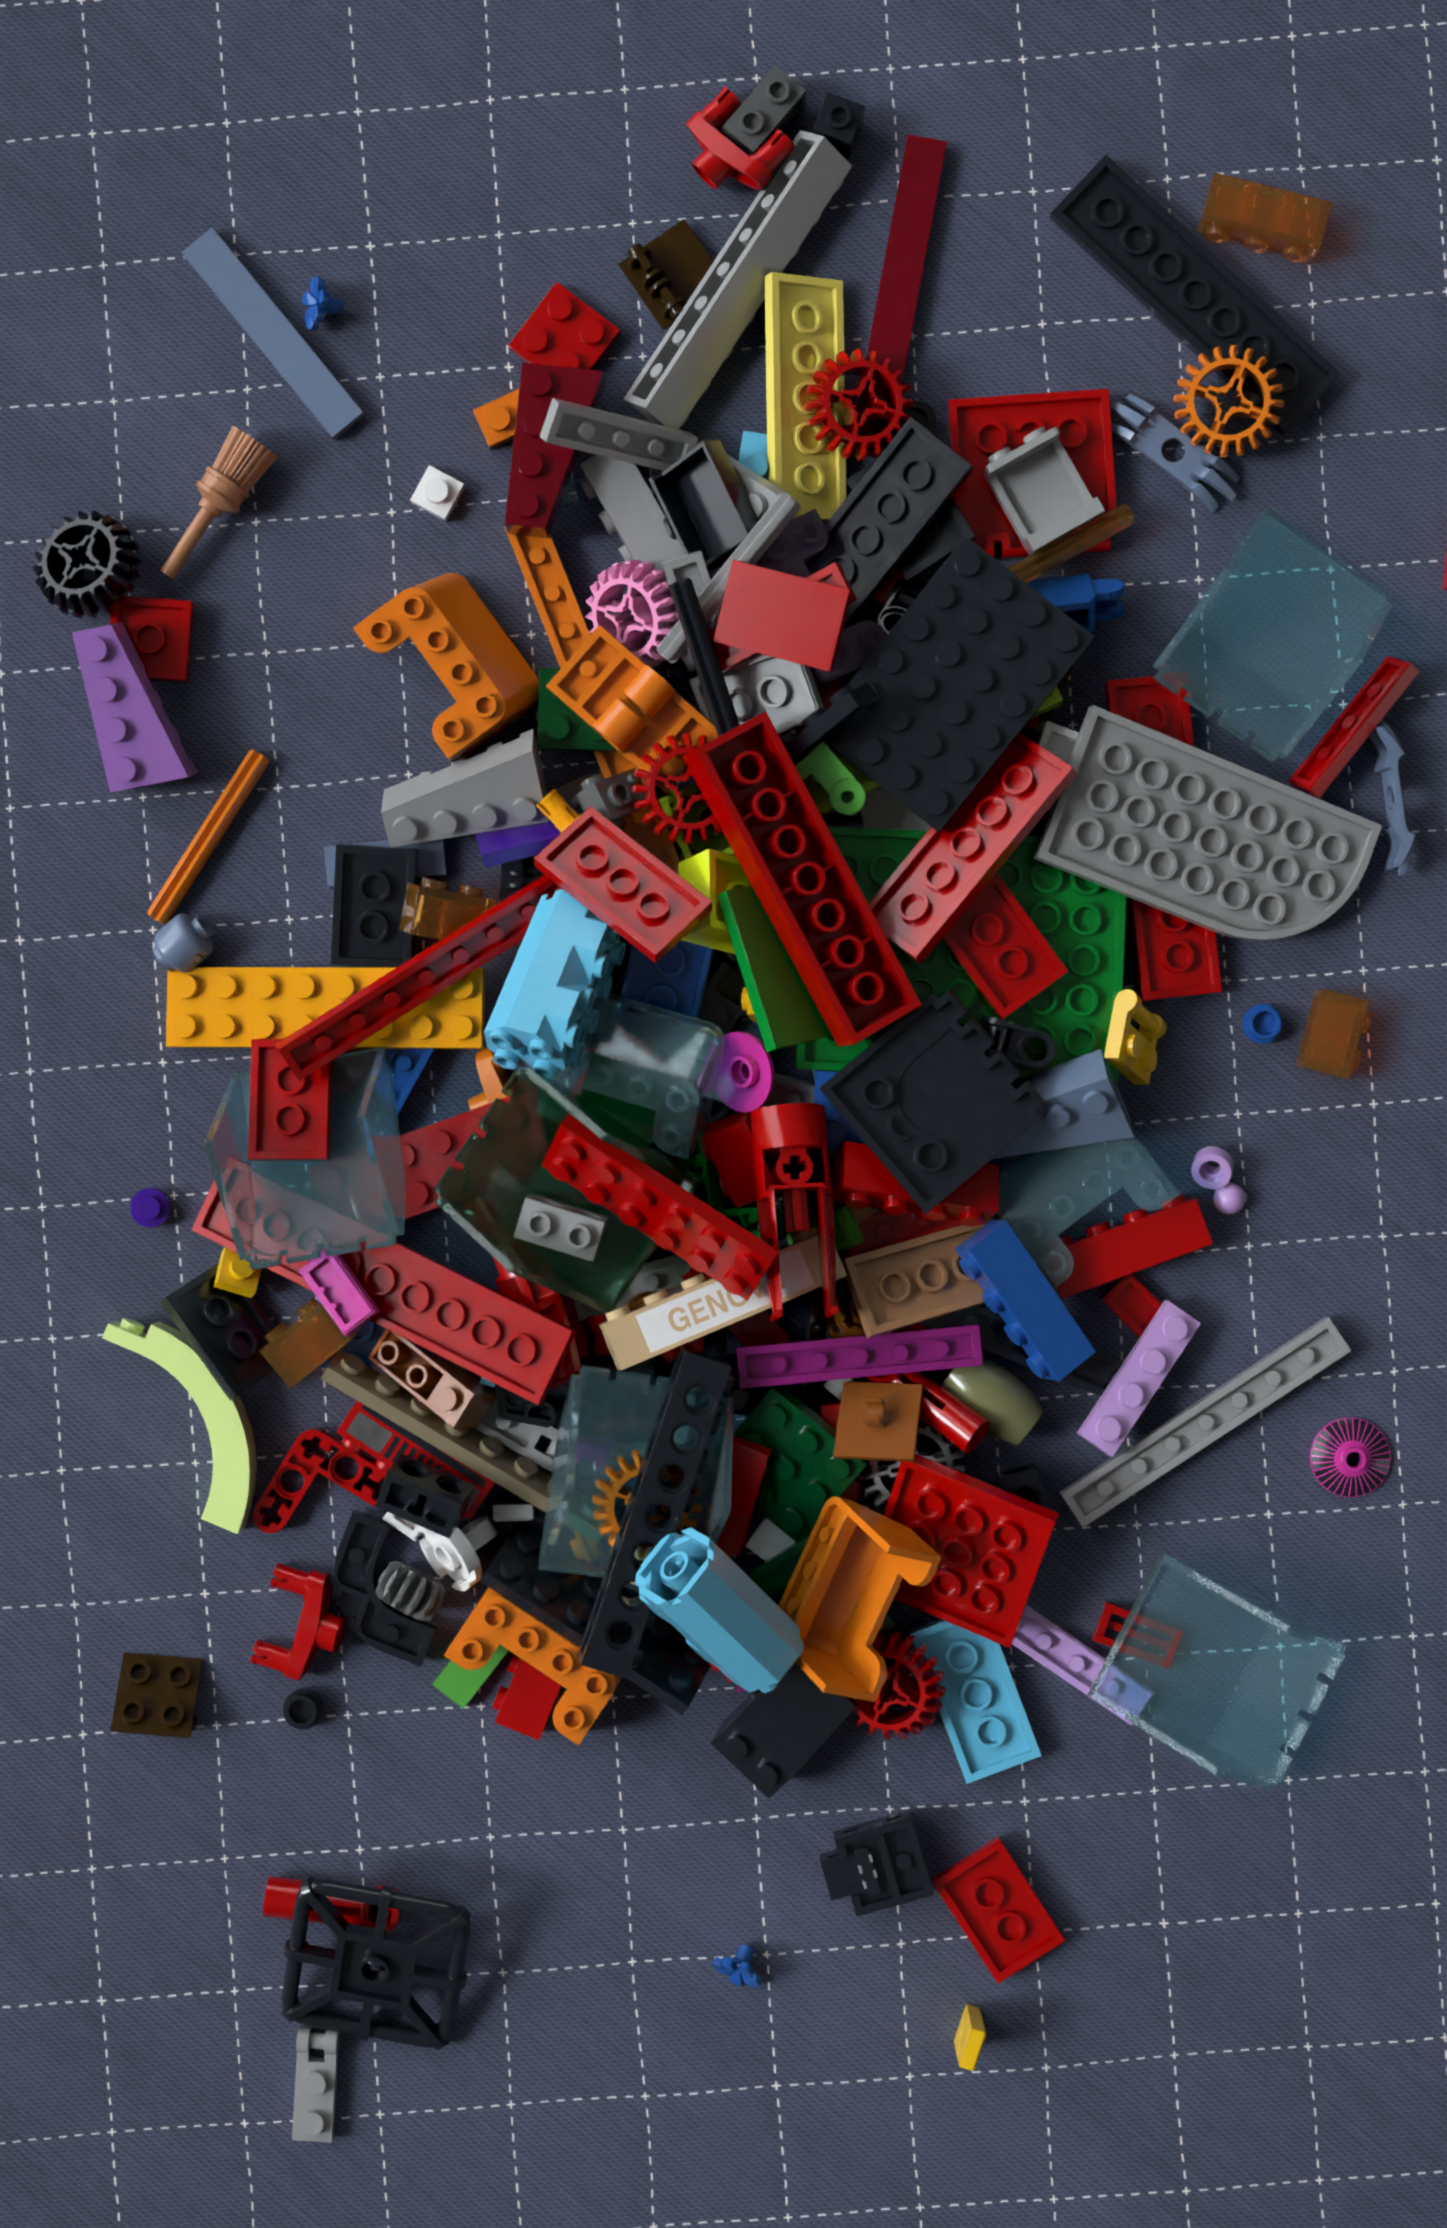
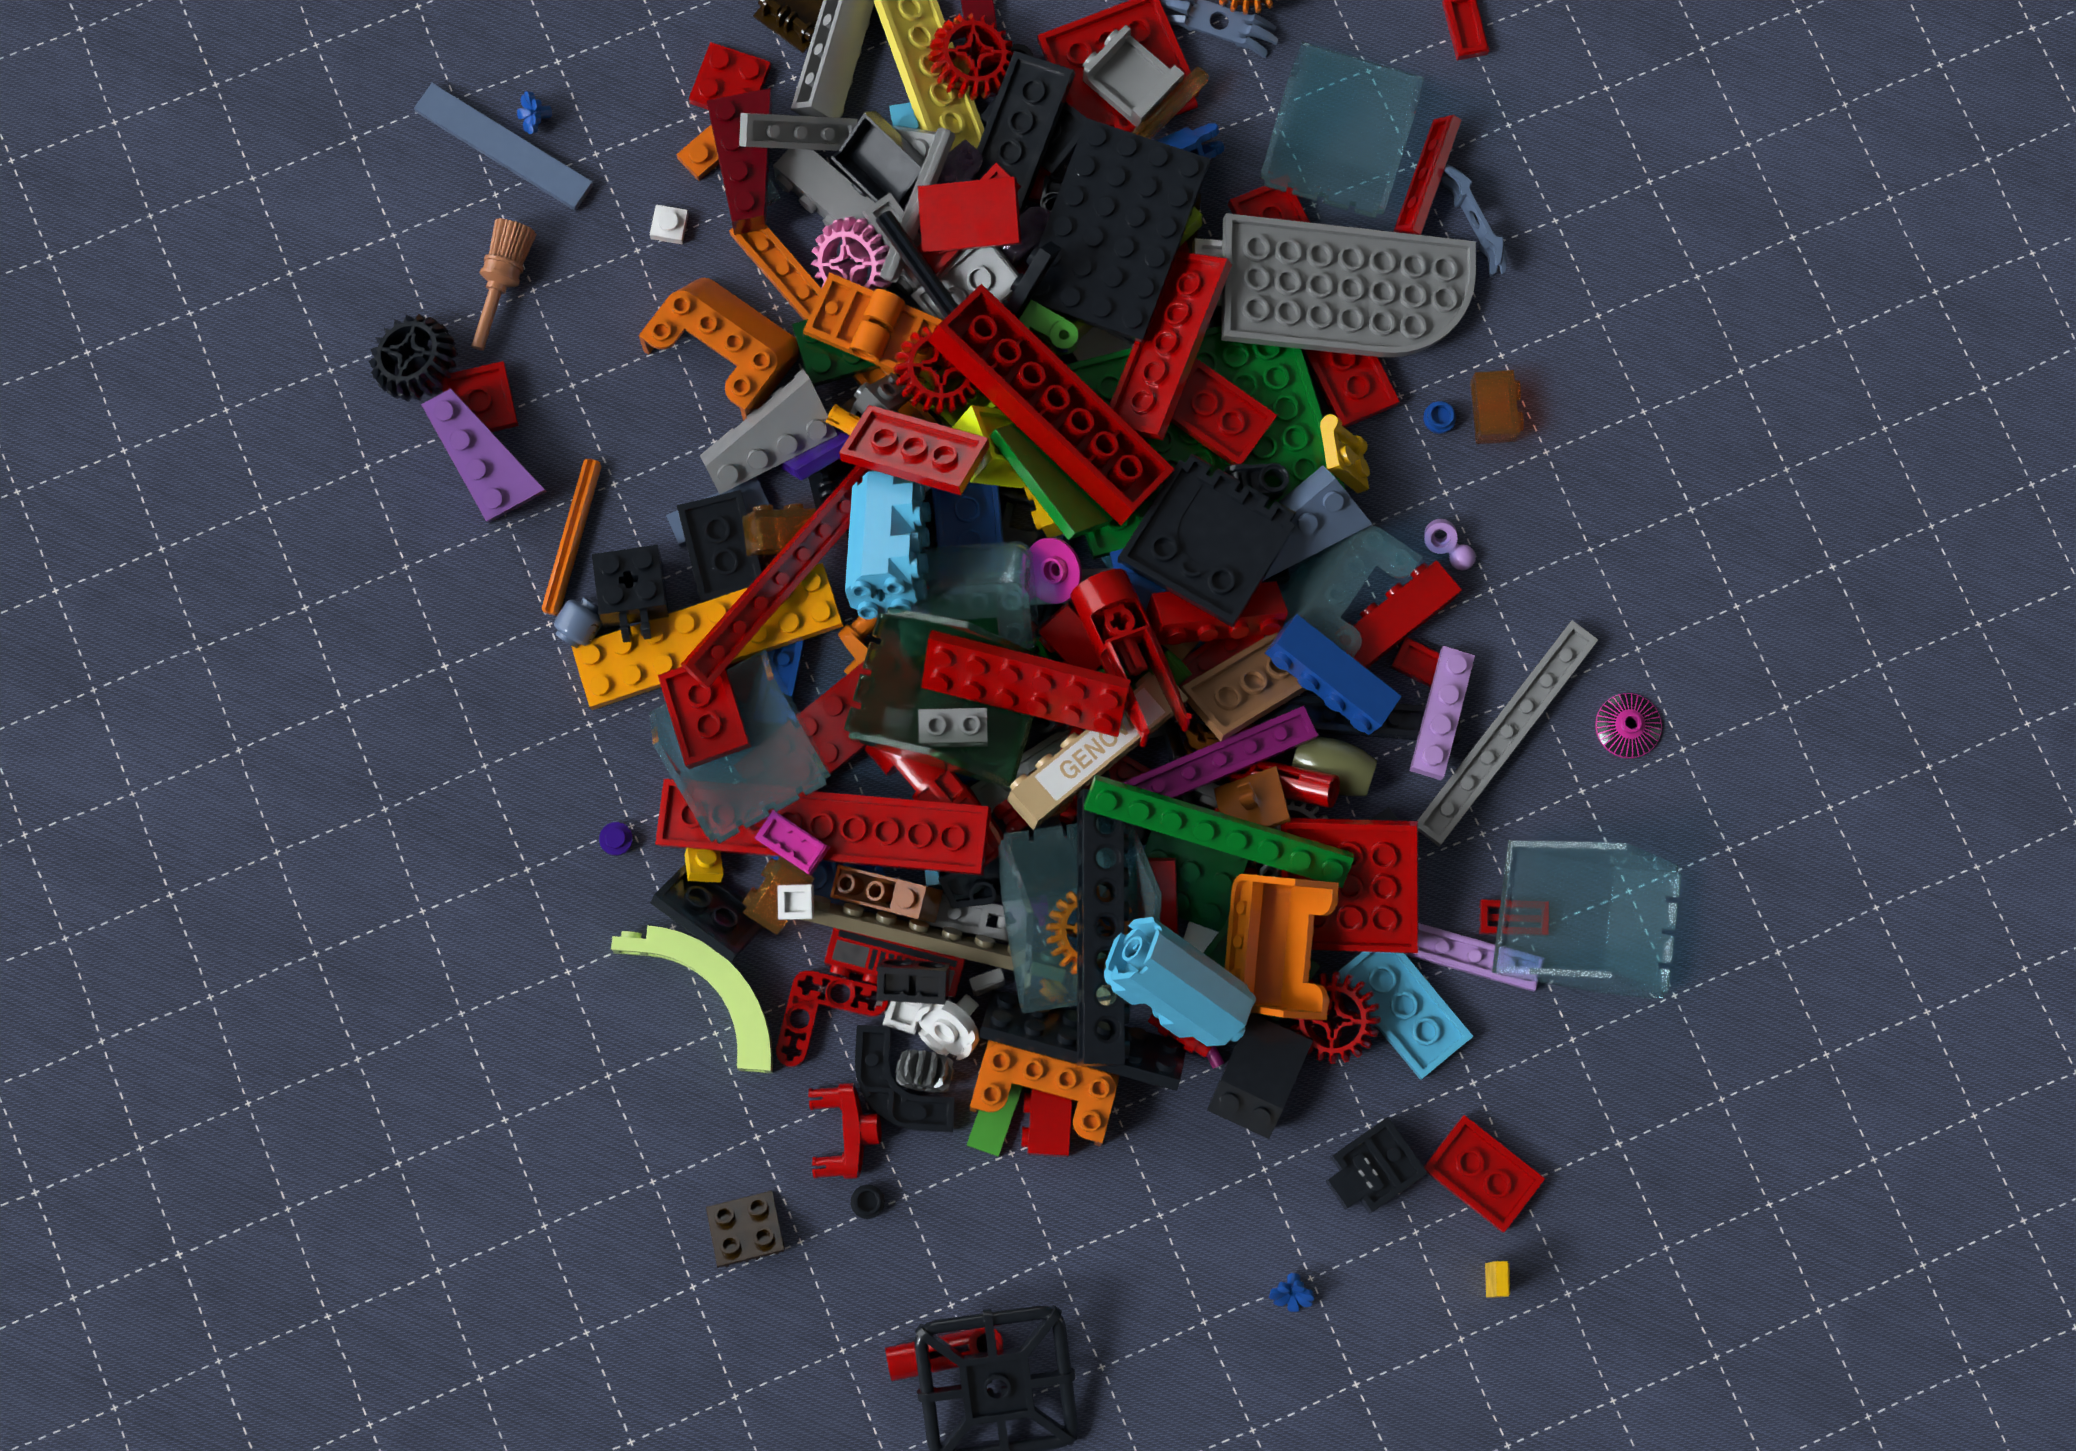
camera: 25 degrees left, 10 degrees down
(265, 946) = (624, 605): none -> black hinge
(320, 1363) = (795, 902): none -> white plate
(824, 1449) = (1218, 831): none -> green plate

